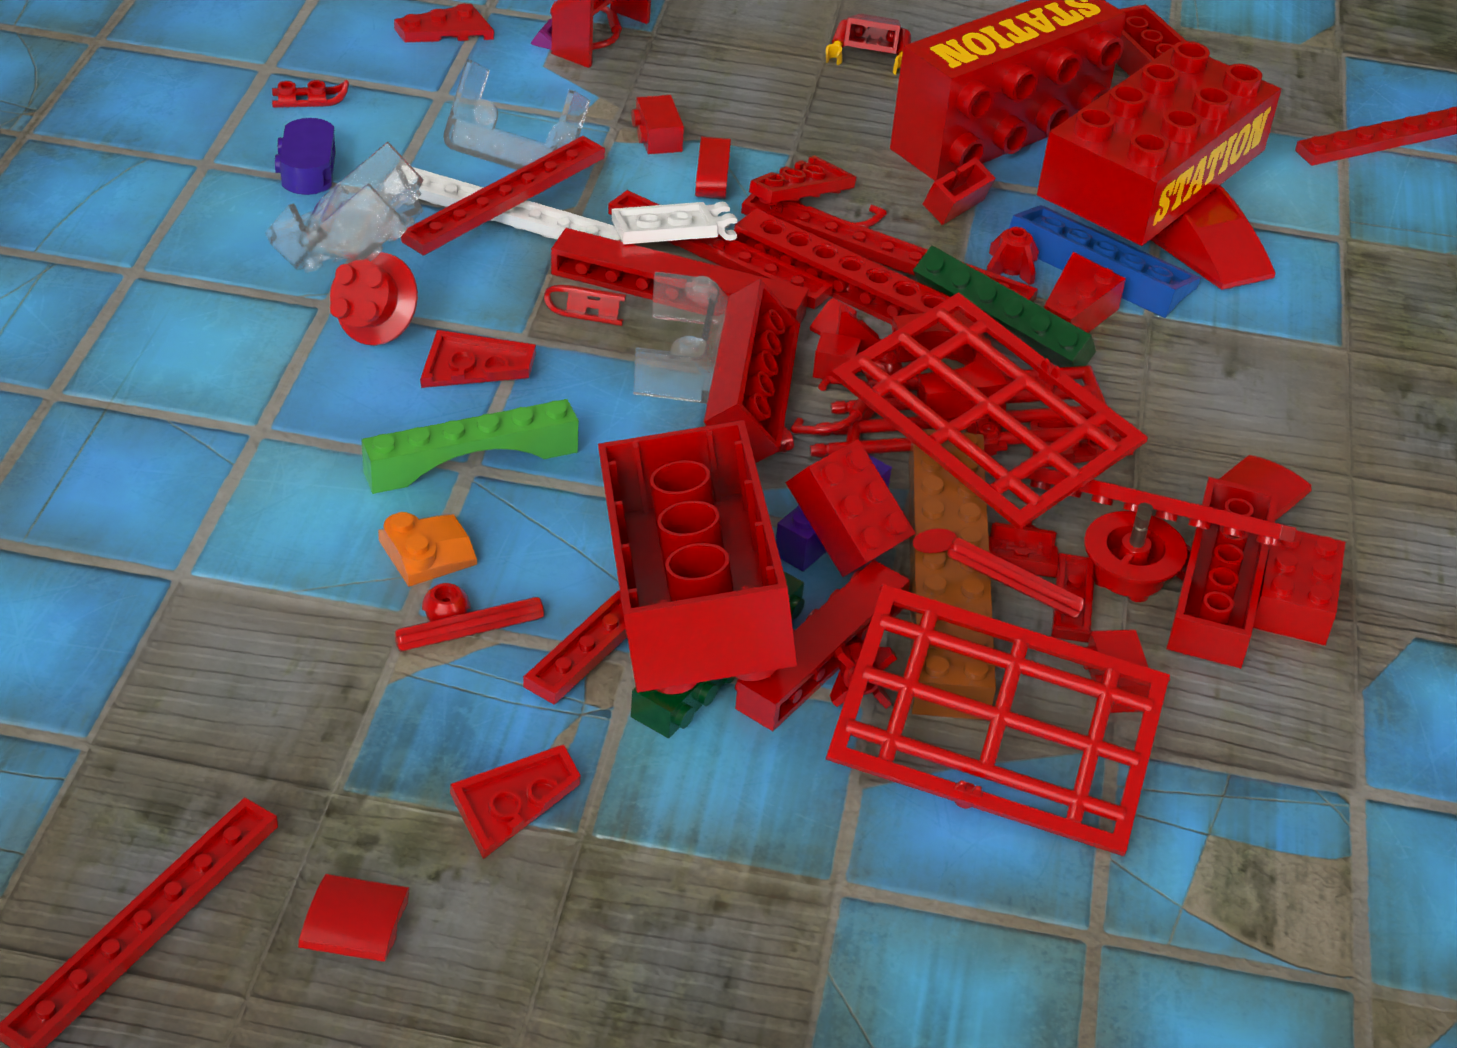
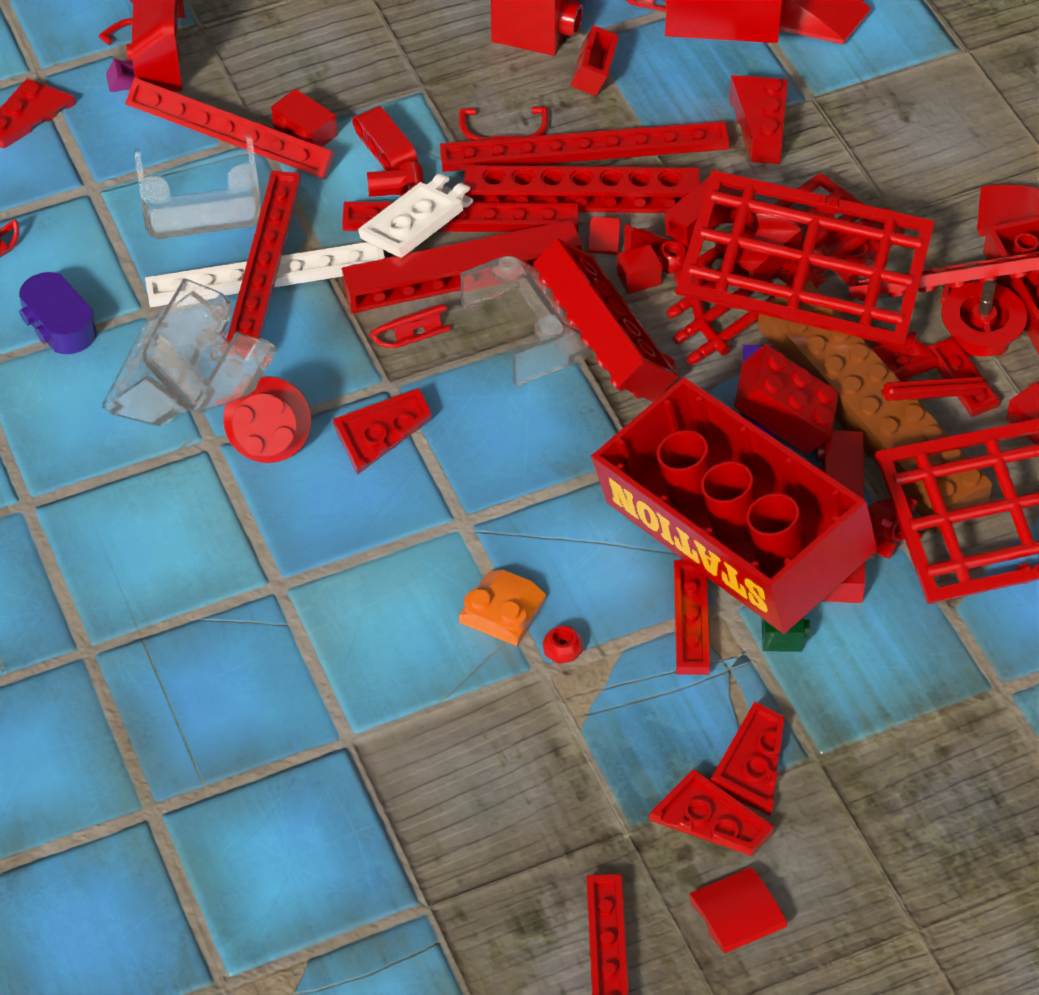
camera: 30 degrees left, 10 degrees up
(403, 456) = (421, 542): bright green arch -> none
(420, 819) = (711, 814): none -> red wing
(469, 623) = (593, 649): red axle -> none
(601, 111) = (230, 128): none -> plate
(677, 192) = (395, 181): none -> red piece
(802, 181) = (469, 116): red wing -> none
(855, 414) = (698, 308): red piece -> none
(933, 540) = (859, 391): red sticker -> none
(1014, 254) = (680, 98): red brick -> none
(1037, 327) = (727, 156): dark green brick -> none
(1148, 280) = (711, 62): blue arch -> none

